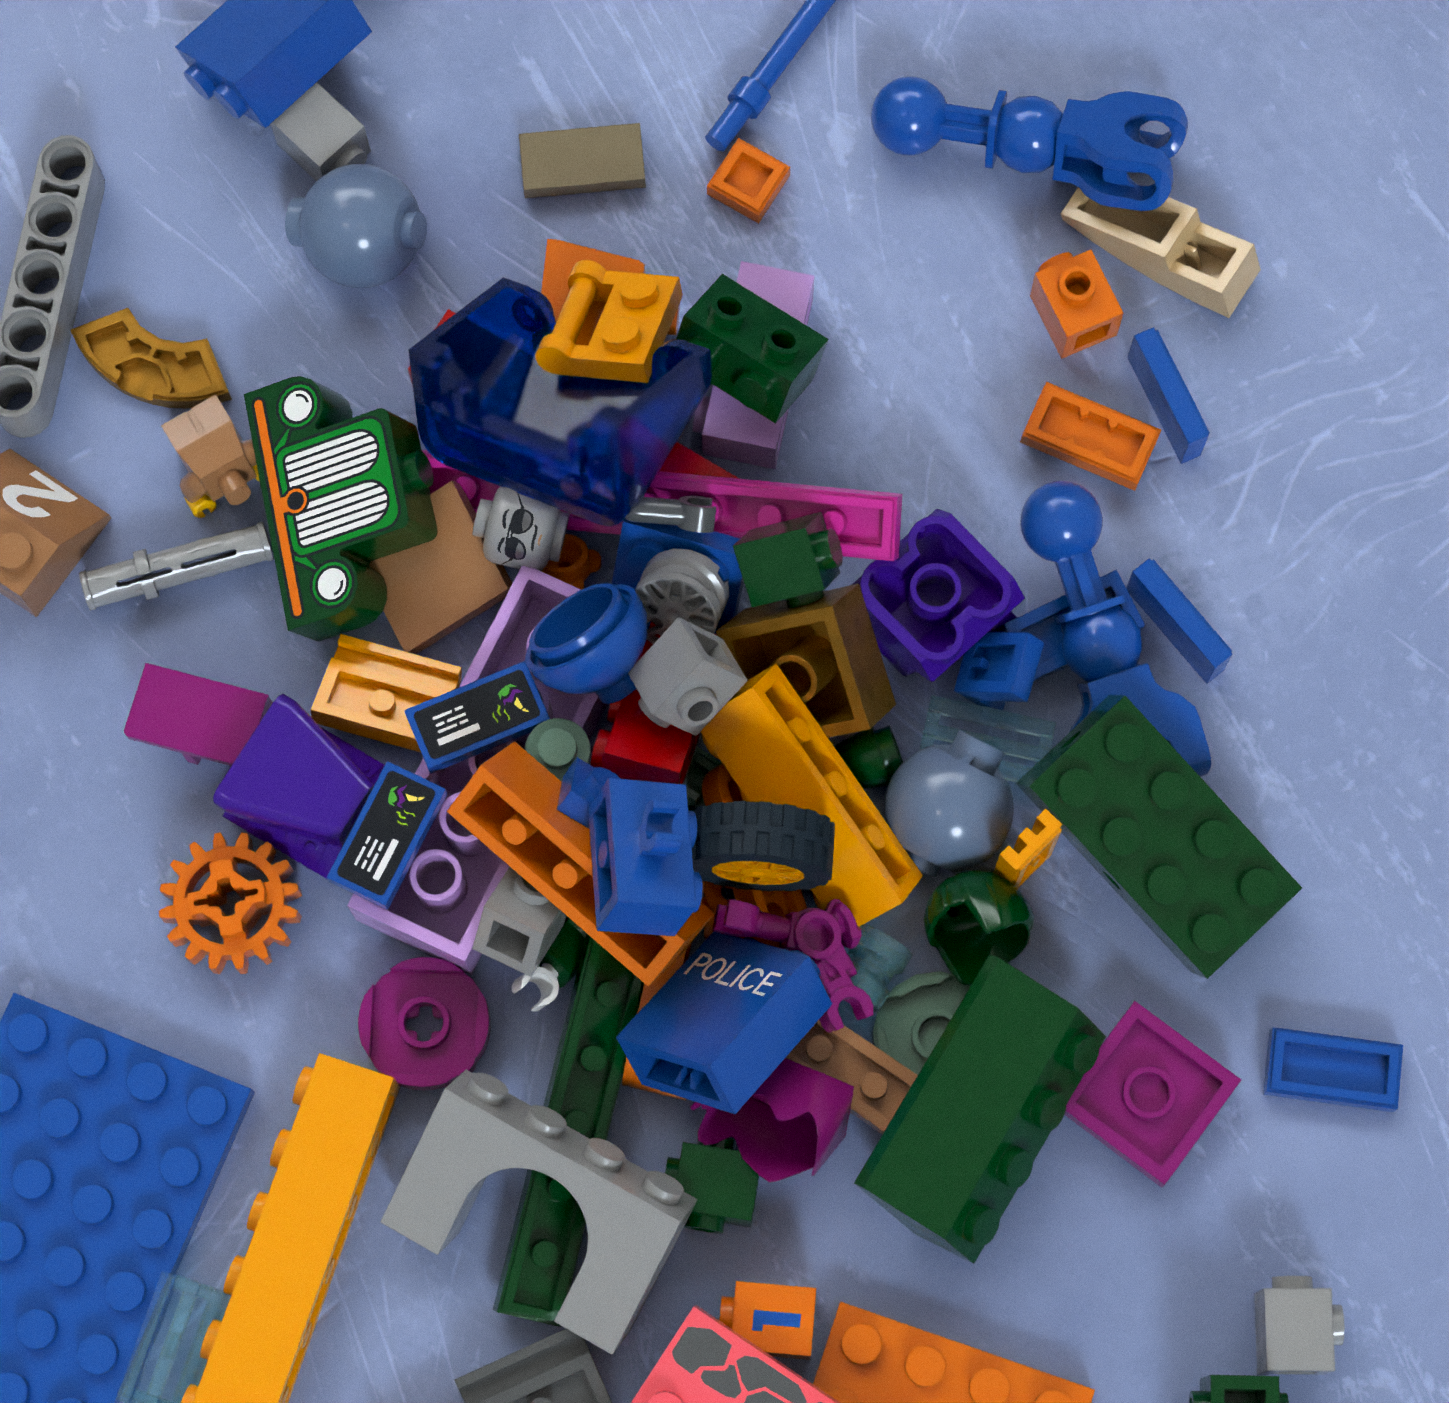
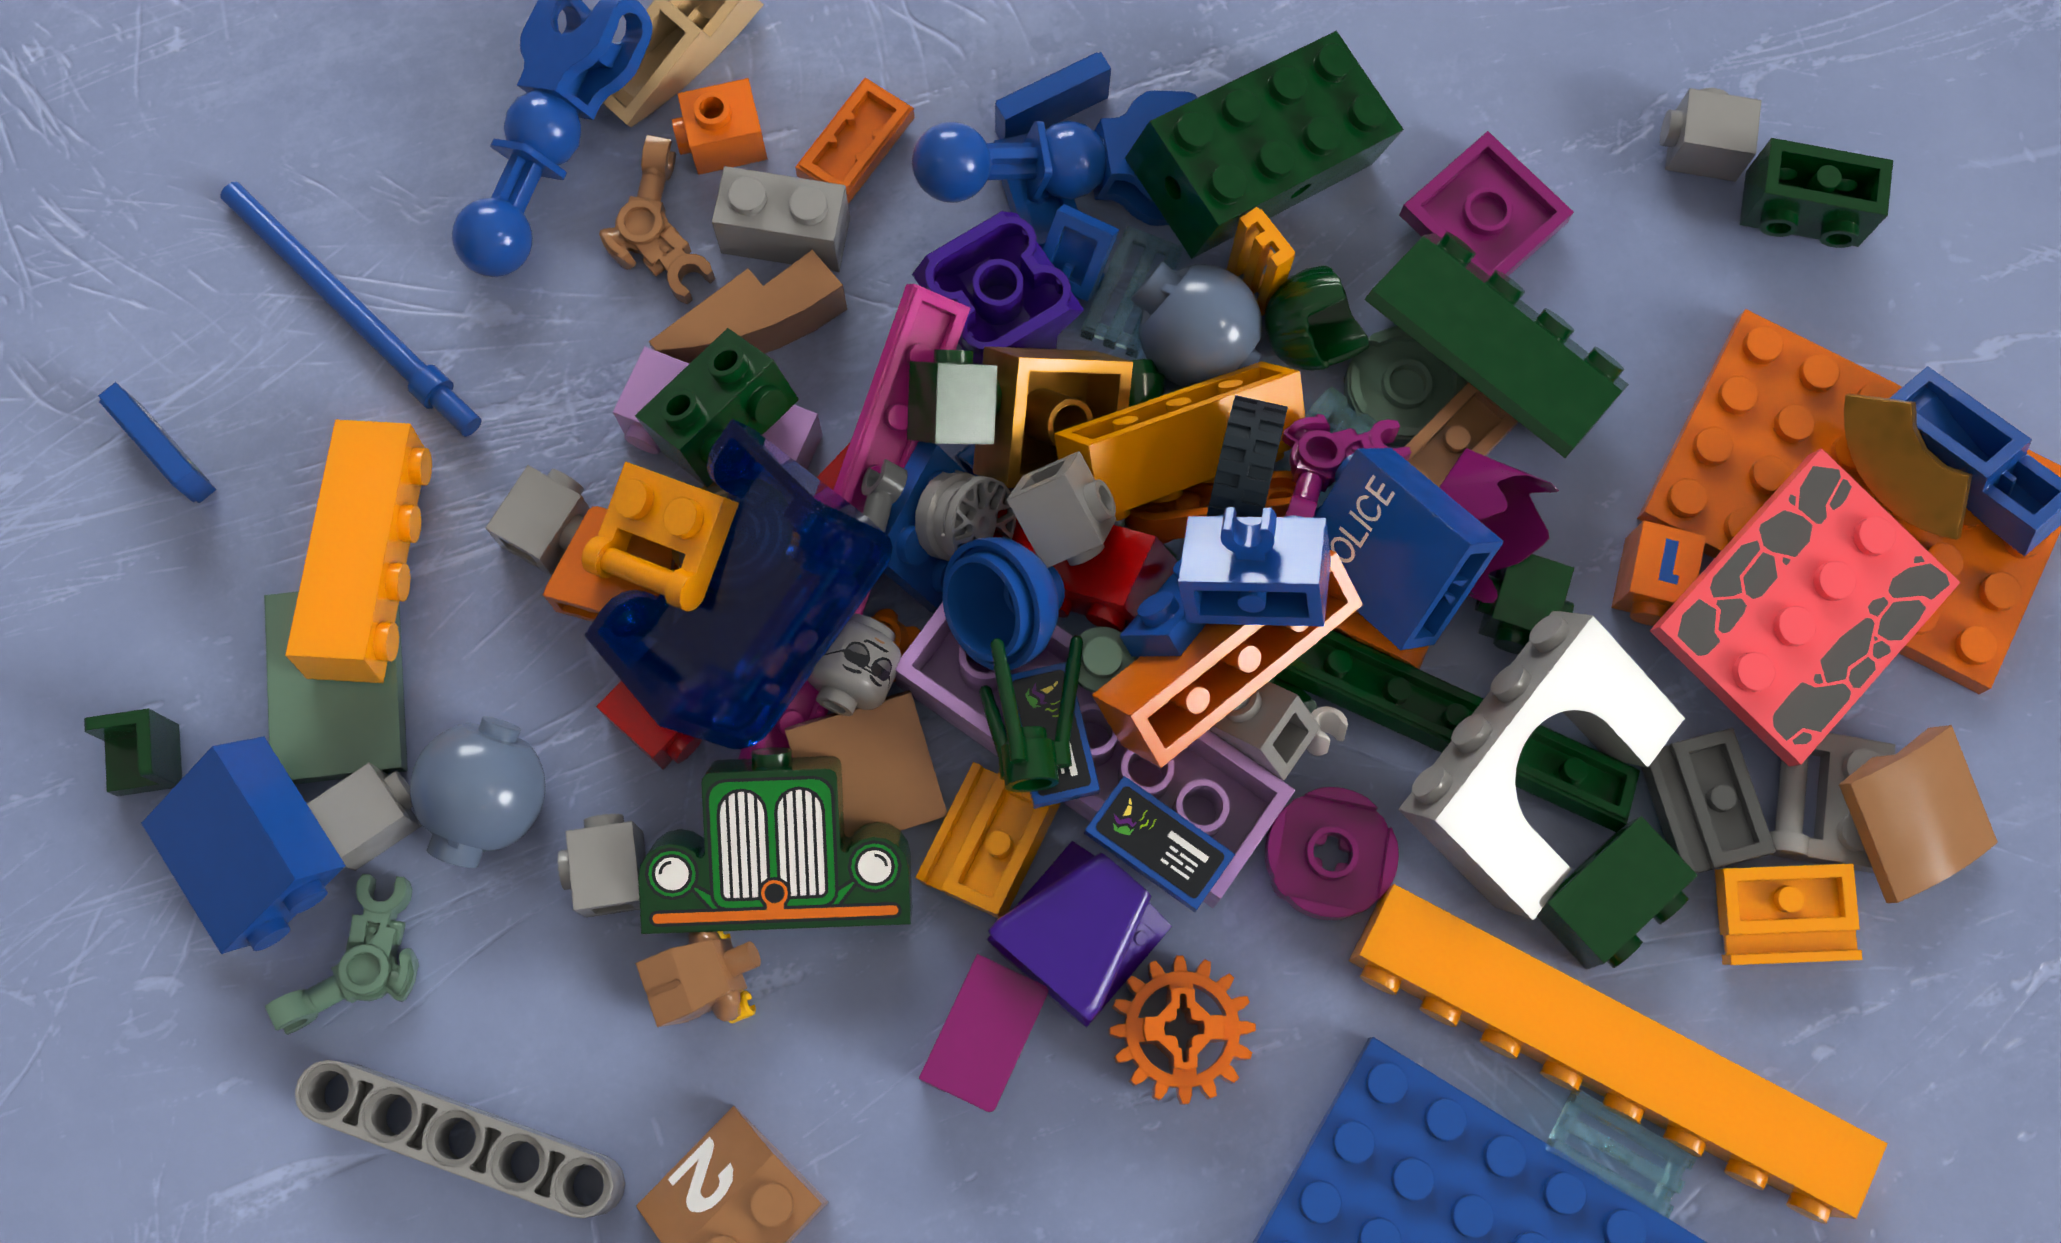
camera: 85 degrees left, 0 degrees up
(103, 585) = (808, 1040): light grey pin -> none
(150, 367) = (576, 1040): pearl gold tile -> none
(193, 175) = (367, 966): none -> sand green piece
(309, 348) = (603, 865): none -> light grey brick
(423, 1310) = (1616, 895): none -> dark green brick
(444, 689) = (1025, 753): none -> dark green plant
(446, 84) = (329, 725): none -> sand green tile
(566, 71) = (359, 552): none -> light orange brick
(582, 160) = (455, 560): dark tan tile -> none
(631, 222) = (539, 517): none -> light grey brick
(748, 180) = (518, 404): orange tile -> none
(877, 375) = (765, 316): none -> medium nougat slope
(952, 257) = (645, 229): none -> medium nougat piece
(984, 379) = (780, 217): none -> light grey brick
(1168, 395) = (831, 65): blue tile -> none
(1333, 1069) = (1480, 63): blue tile -> none

